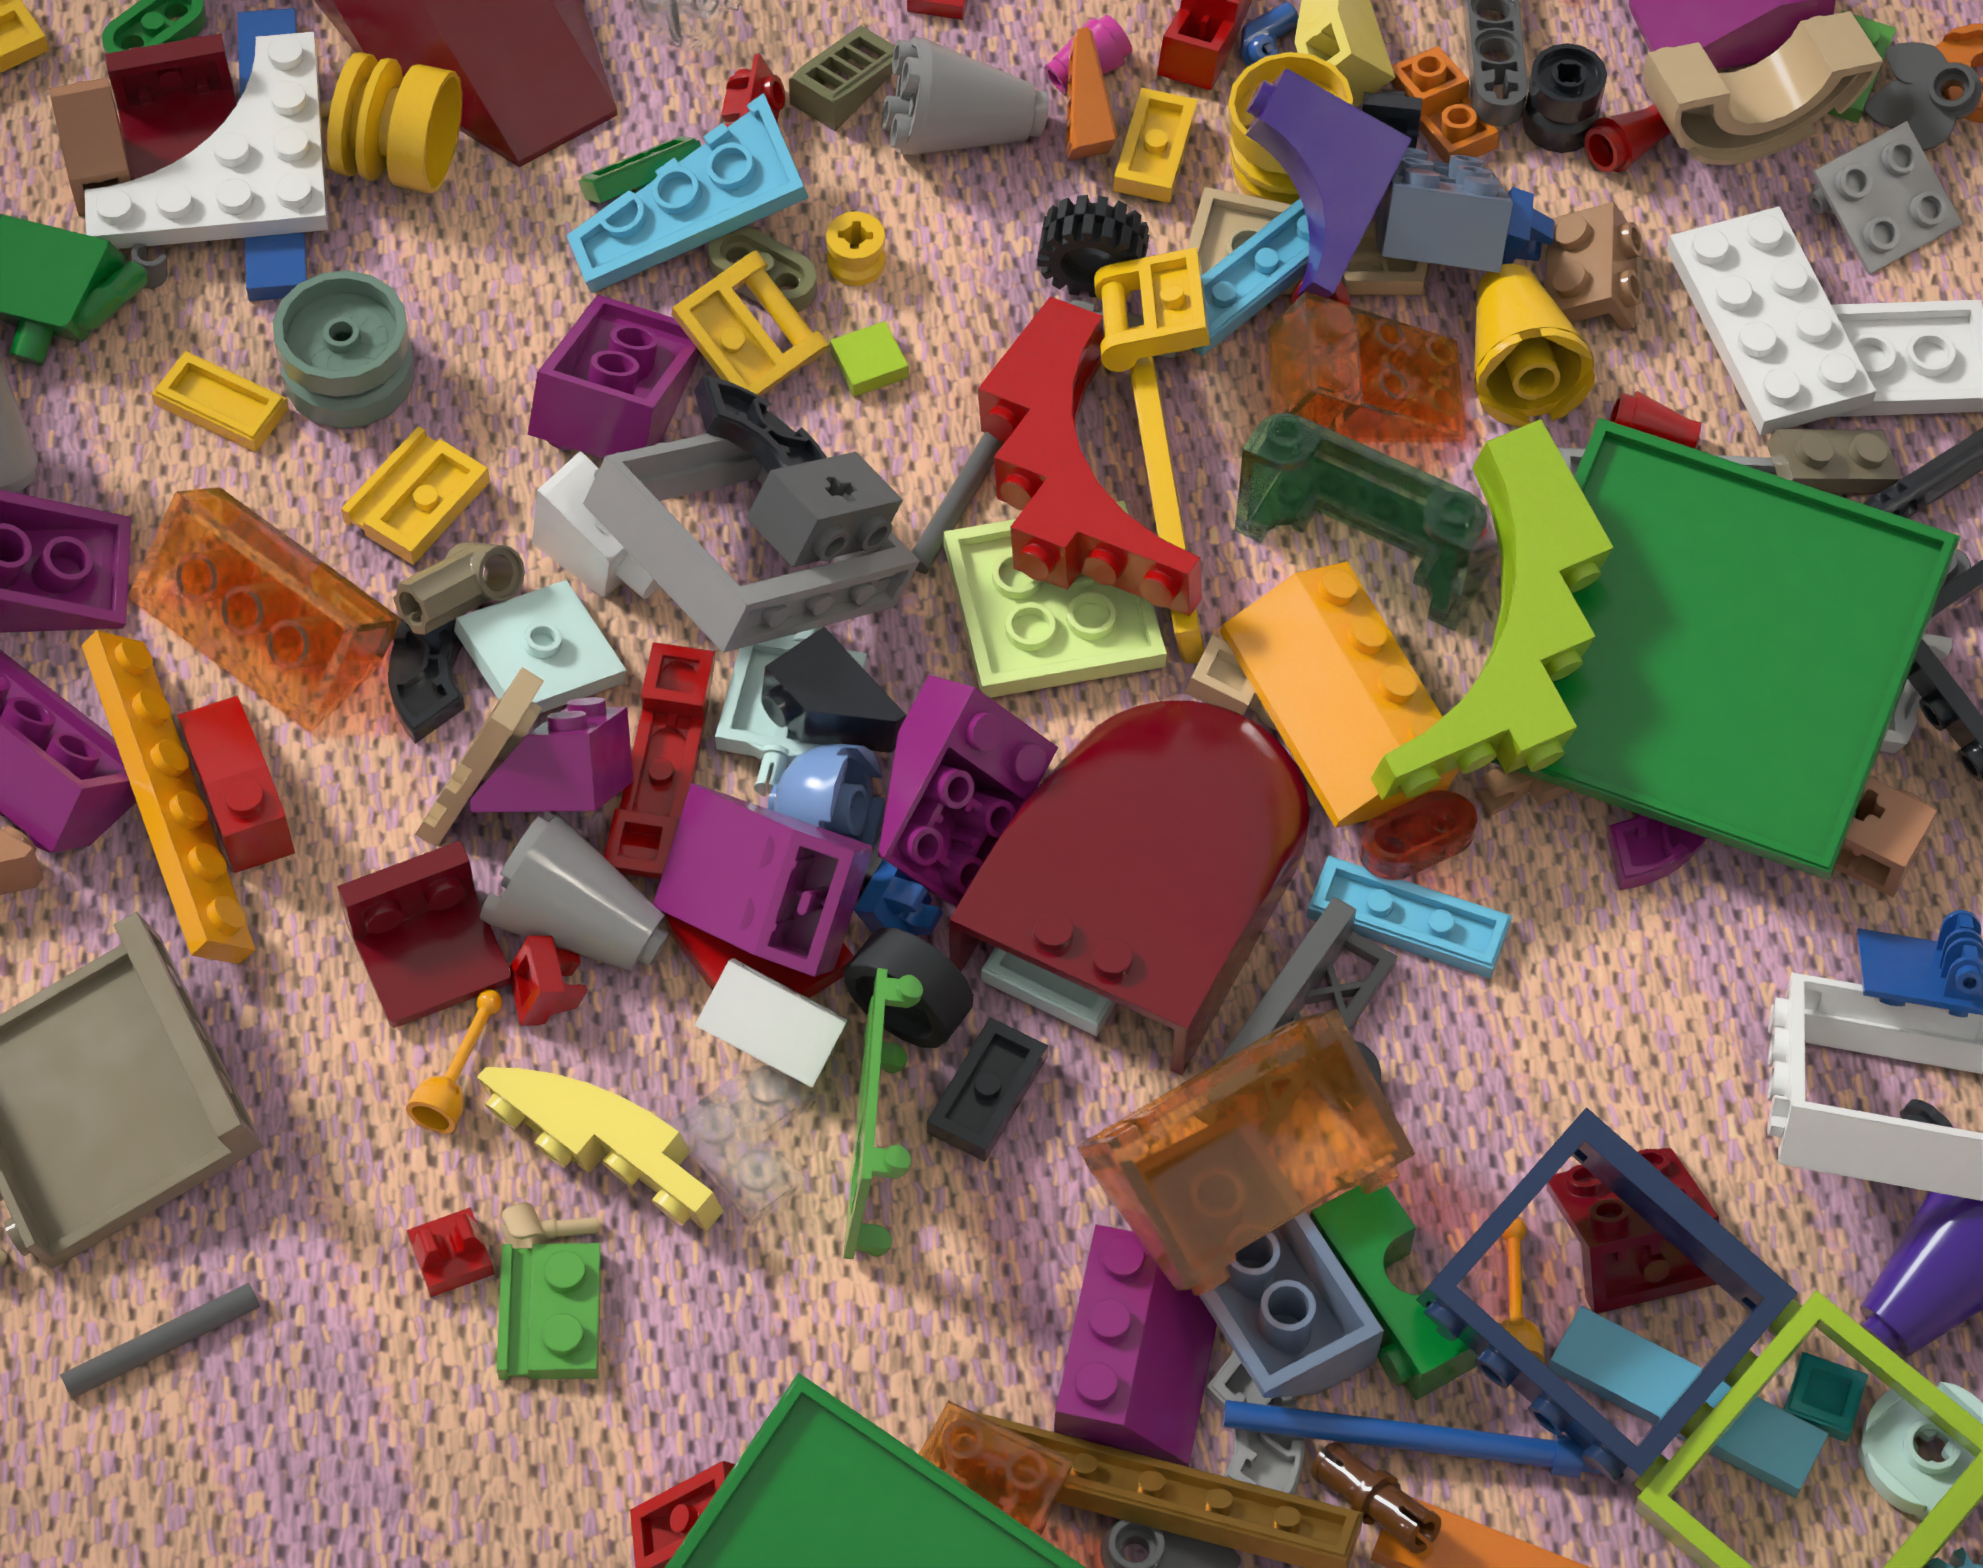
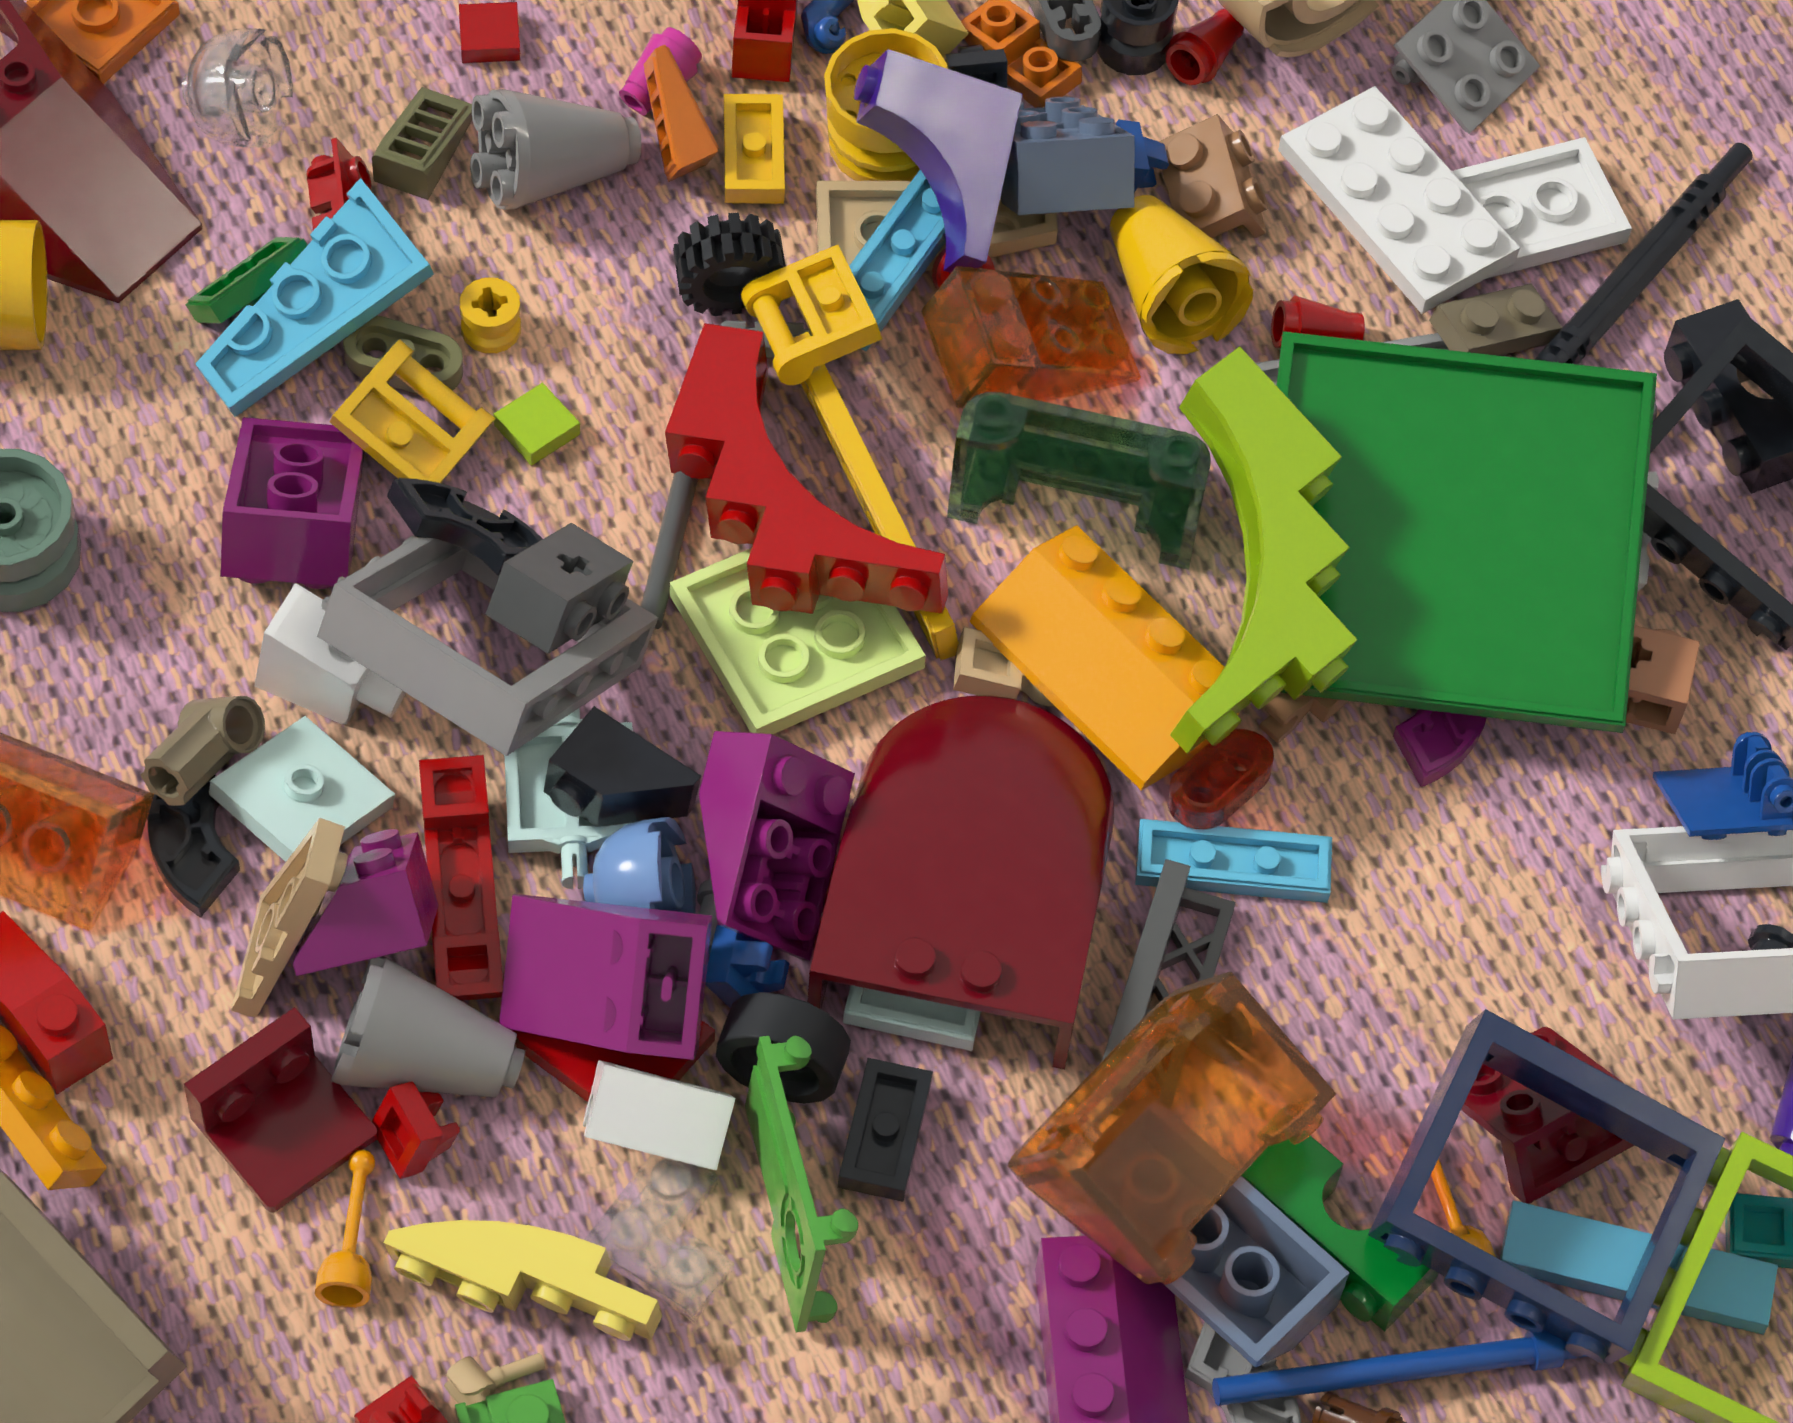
camera: 20 degrees left, 0 degrees up
(415, 495) = (124, 663): yellow plate -> none

